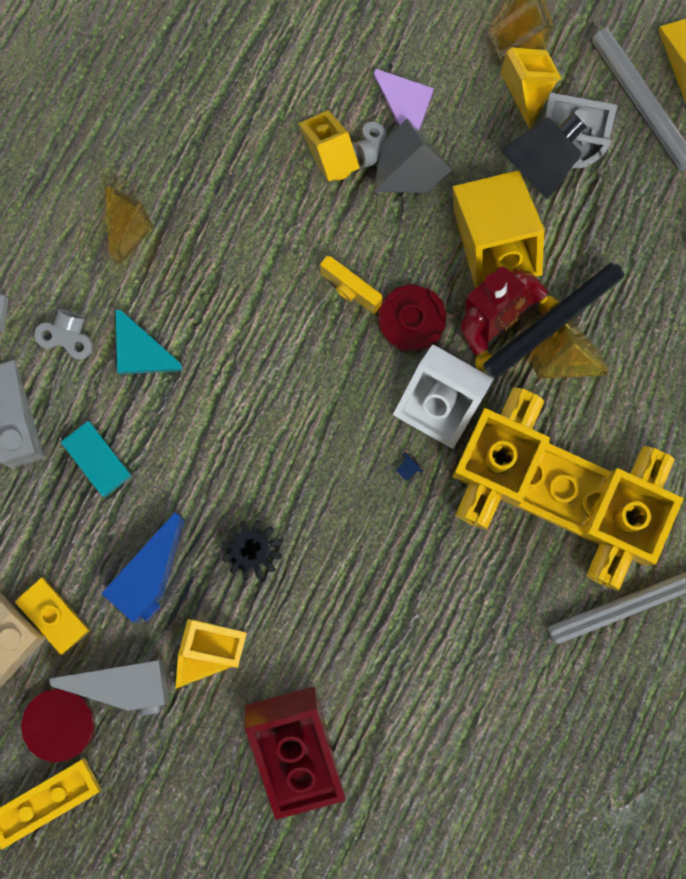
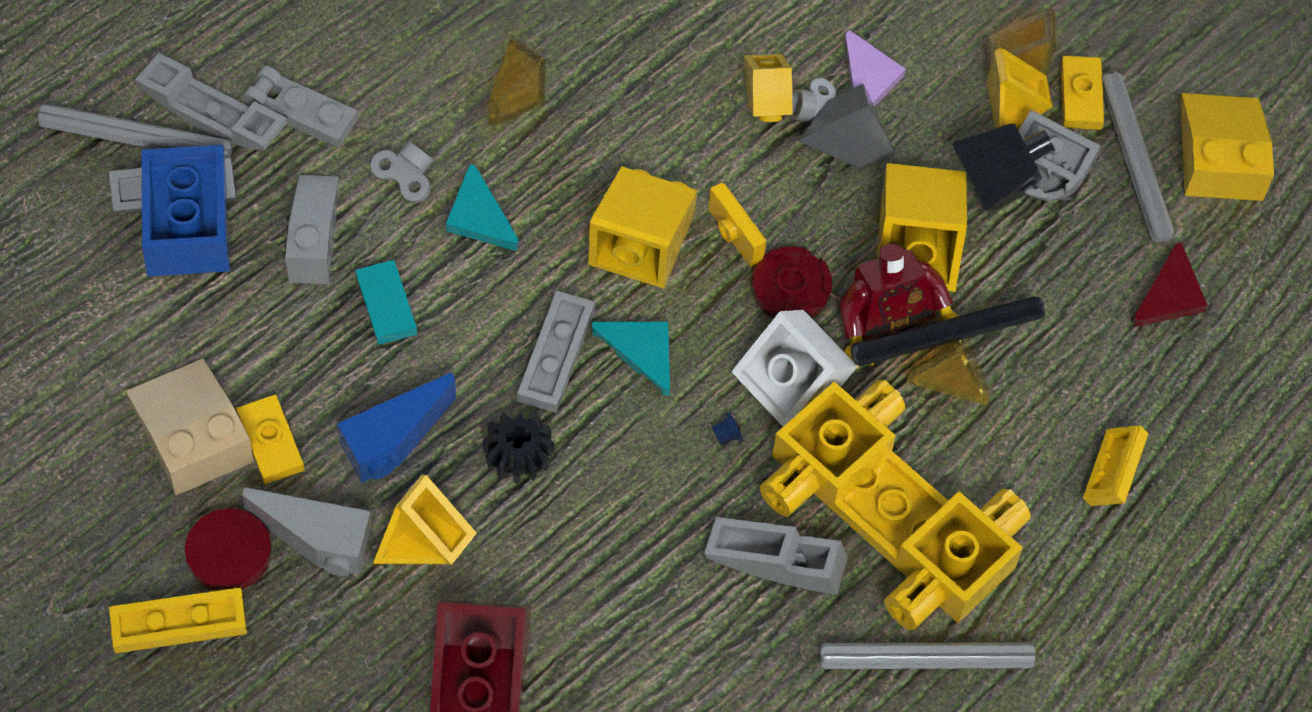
camera: 15 degrees right, 20 degrees down
(249, 453) = (556, 351): none -> light grey plate
(275, 314) = (641, 226): none -> yellow slope
(316, 421) = (641, 346): none -> teal tile
(486, 564) = (778, 554): none -> light grey slope
(581, 56) = (1082, 92): none -> yellow plate

